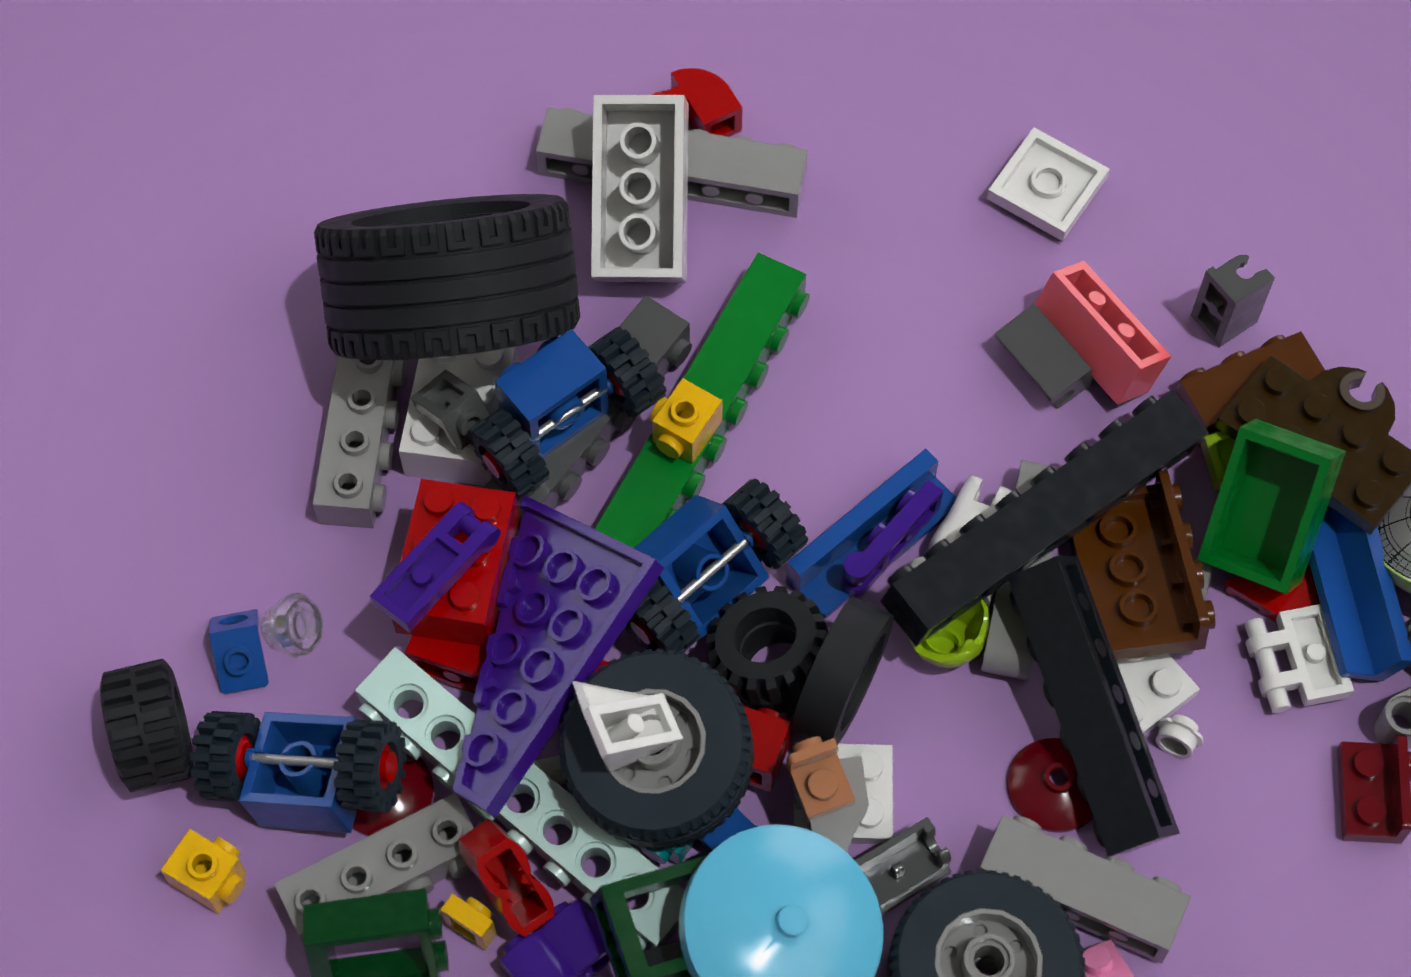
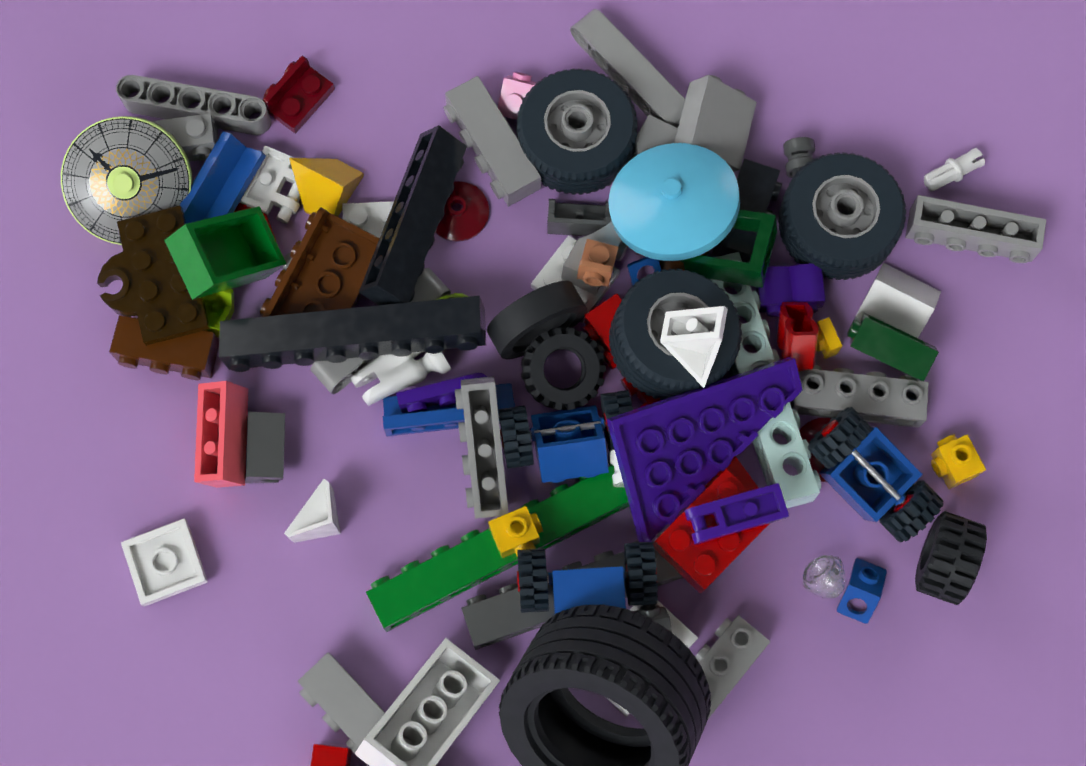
camera: 145 degrees left, 10 degrees up
(833, 517) = (484, 446): none -> light grey brick
(920, 323) = (317, 517): none -> white slope
(1178, 736) = (374, 187): white plate -> none
(1228, 302) = (133, 394): dark grey hinge -> none
(1241, 700) = (324, 183): none -> yellow slope

